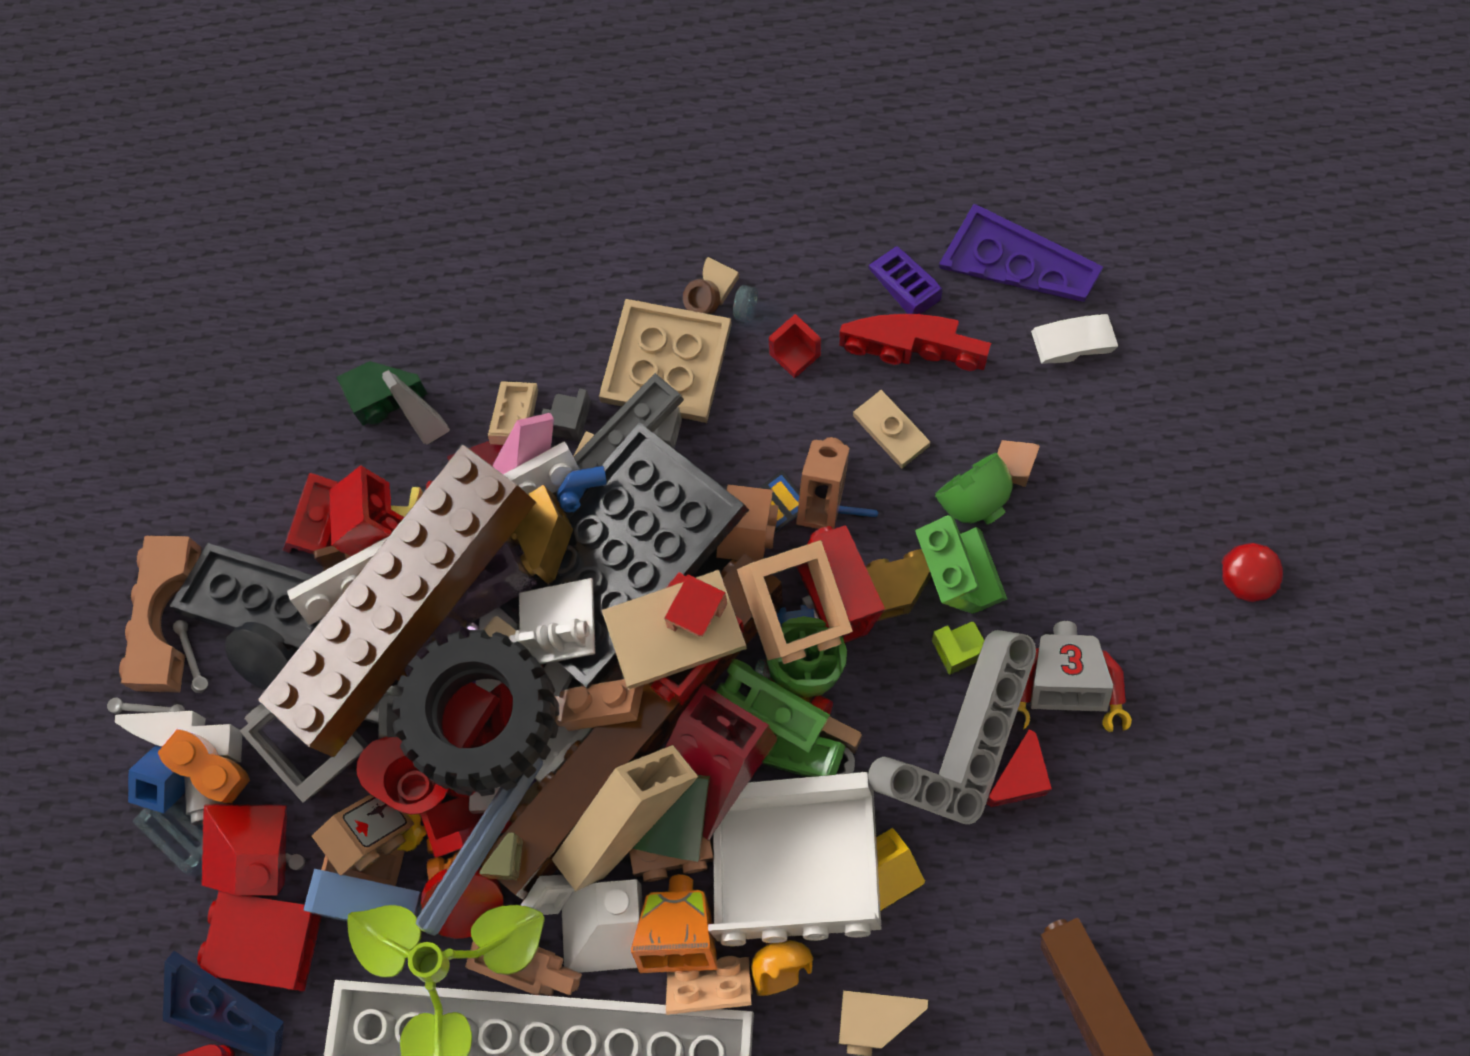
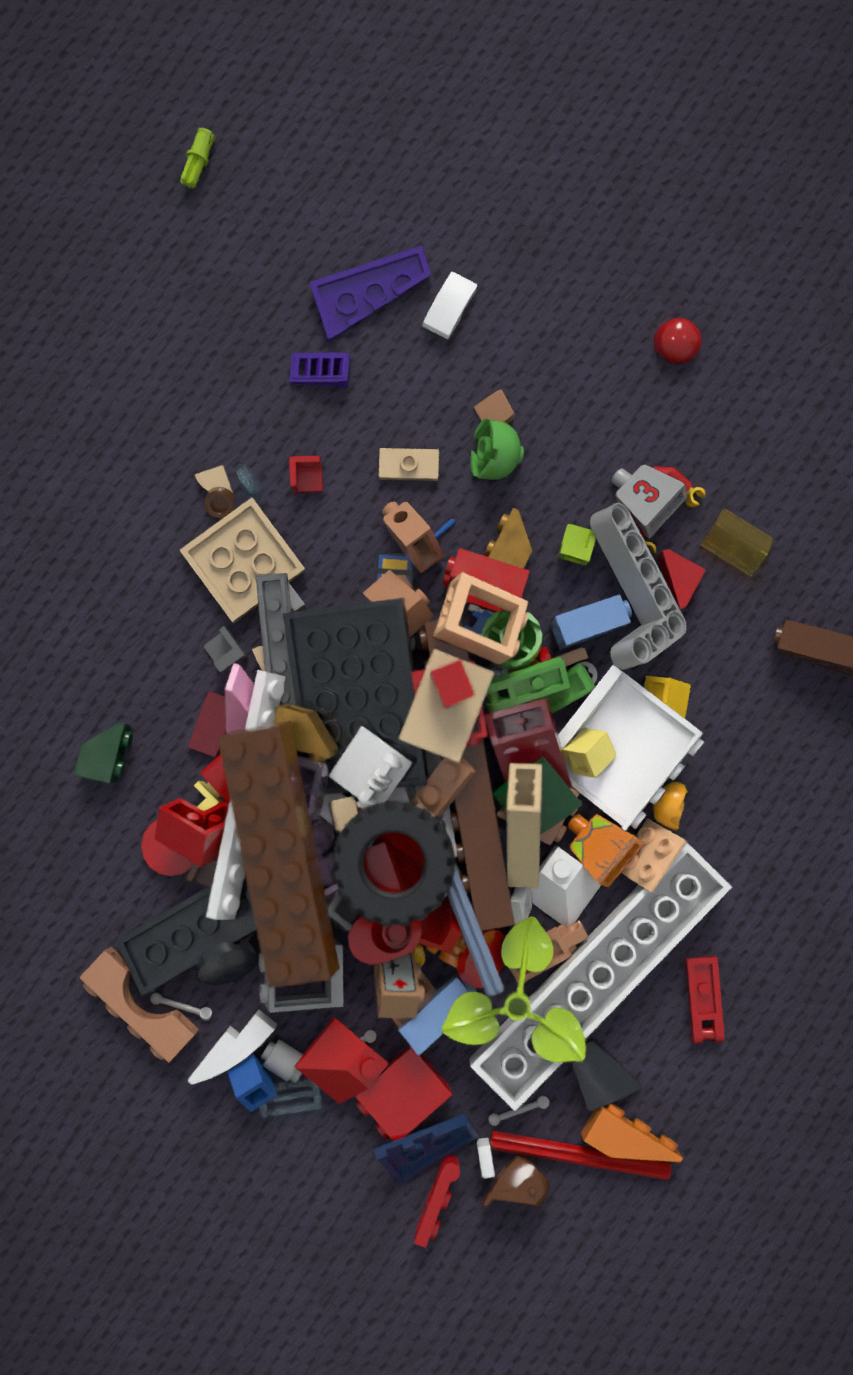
camera: 60 degrees left, 15 degrees up
(116, 706) = (174, 1074): light grey hinge -> none
(198, 759) = (282, 1048): orange brick -> none
(312, 517) = (156, 862): red panel -> none
(422, 417) = (147, 741): light grey slope -> none
(505, 860) = (495, 916): olive slope -> none
(513, 403) = (195, 683): tan plate -> none
(576, 484) = (290, 686): blue arm -> none
(761, 831) = (589, 752): none -> light yellow panel
(875, 1019) = (743, 777): tan slope -> none
(894, 720) = (590, 621): none -> medium blue slope
(899, 335) = (356, 406): red slope -> none
(960, 566) = (537, 502): bright green panel -> none
(993, 30) = (197, 157): none -> lime axle
(1112, 802) = (737, 542): none -> clear yellow panel

